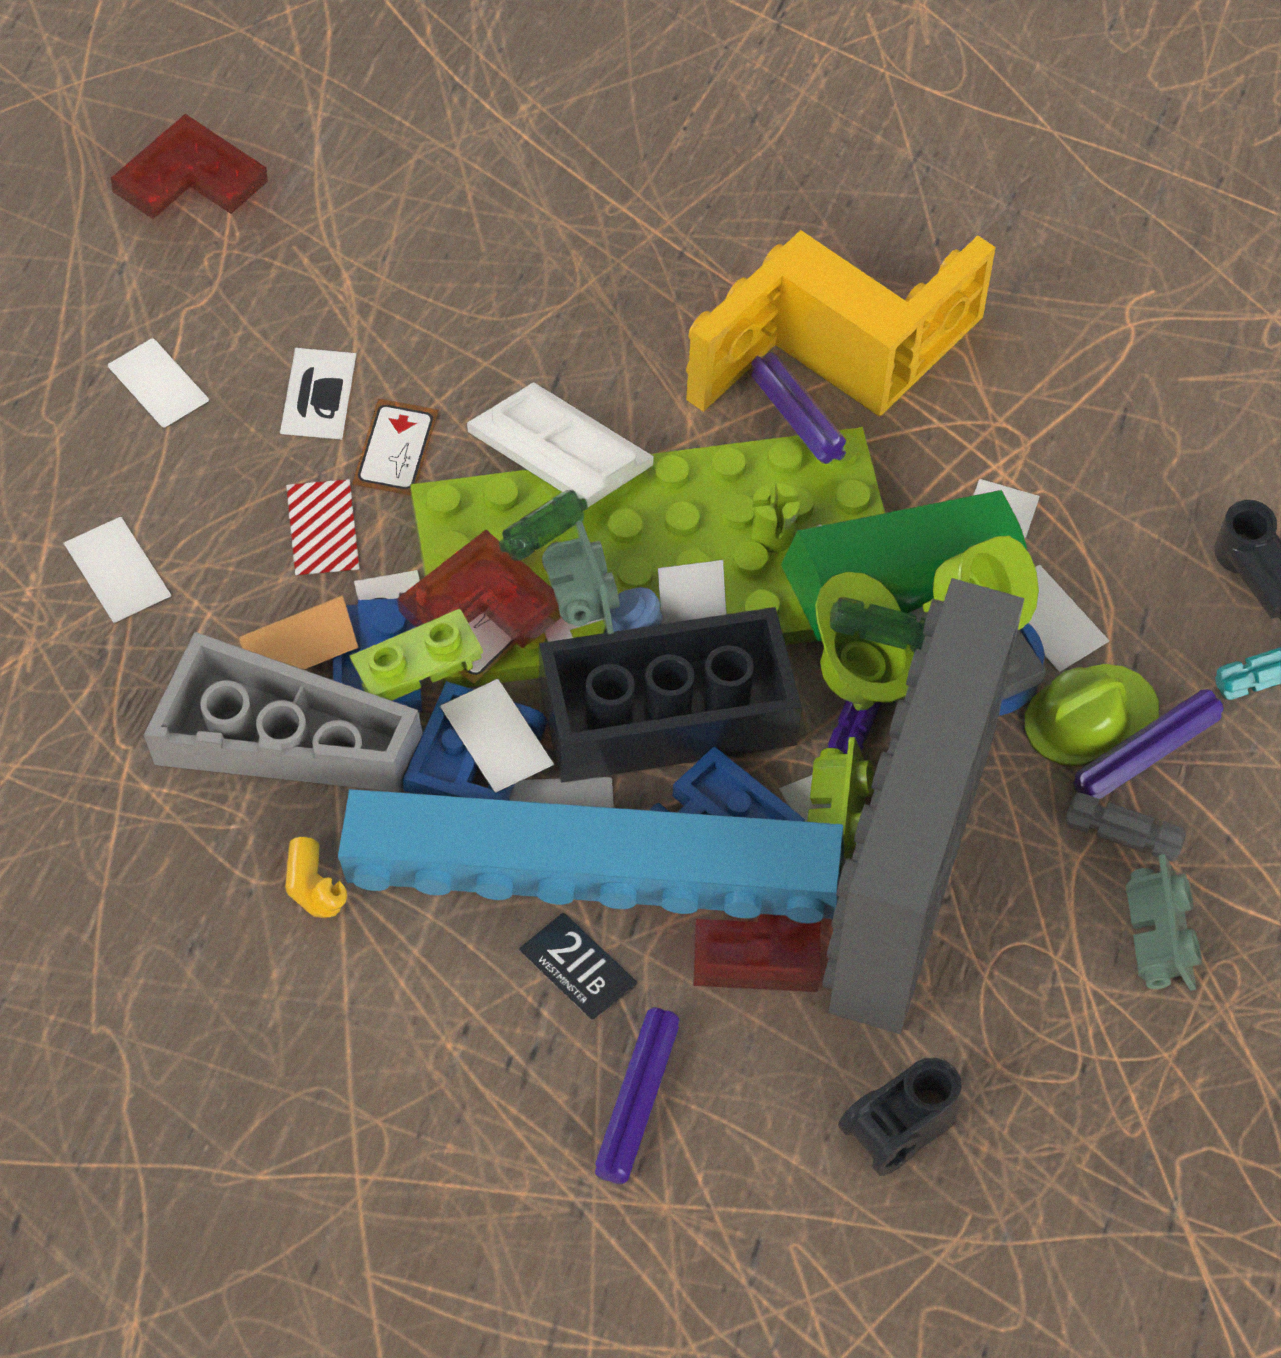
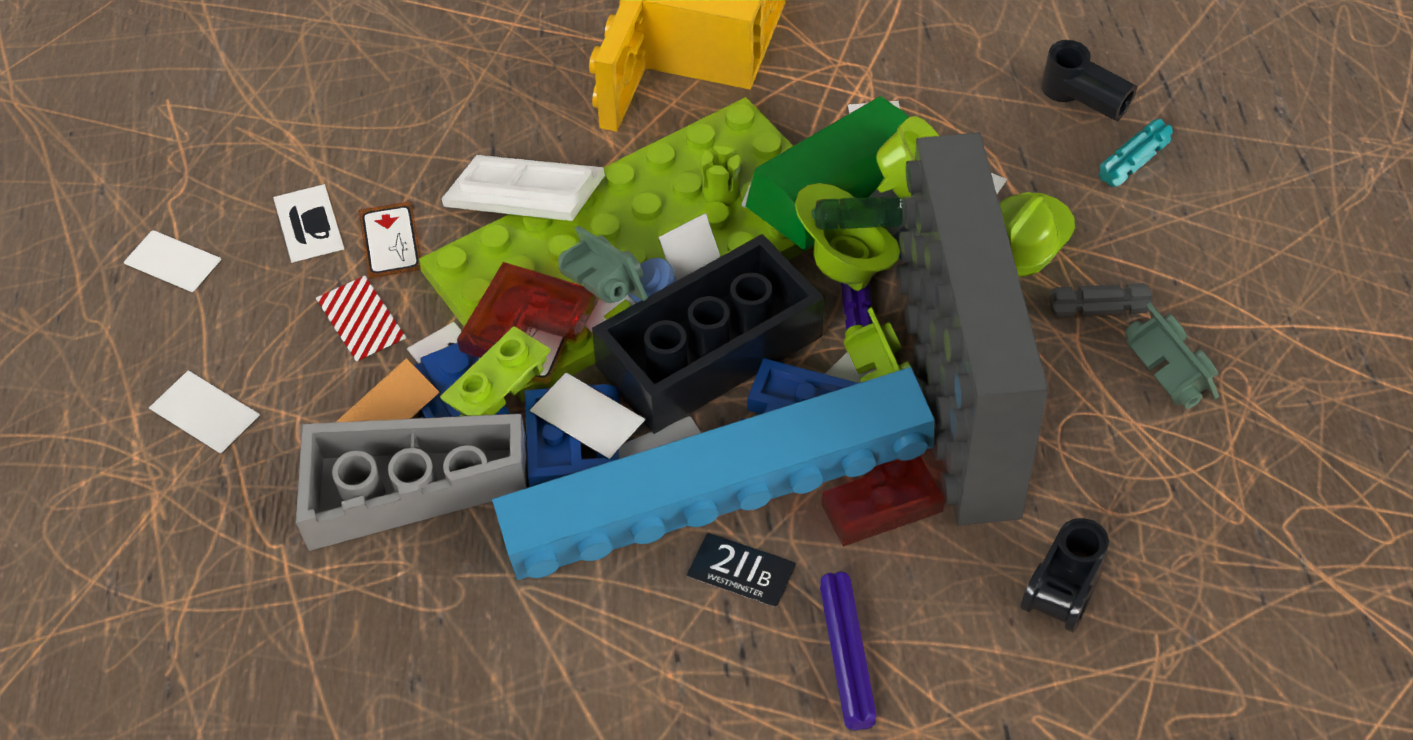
camera: 20 degrees left, 5 degrees down
(187, 158) = (125, 89): clear red plate -> none
(306, 885) = (487, 595): yellow arm -> none
(543, 525) = (546, 243): clear green axle -> none
(798, 408) = (694, 97): dark purple axle -> none
(1149, 745) = (1082, 237): dark purple axle -> none

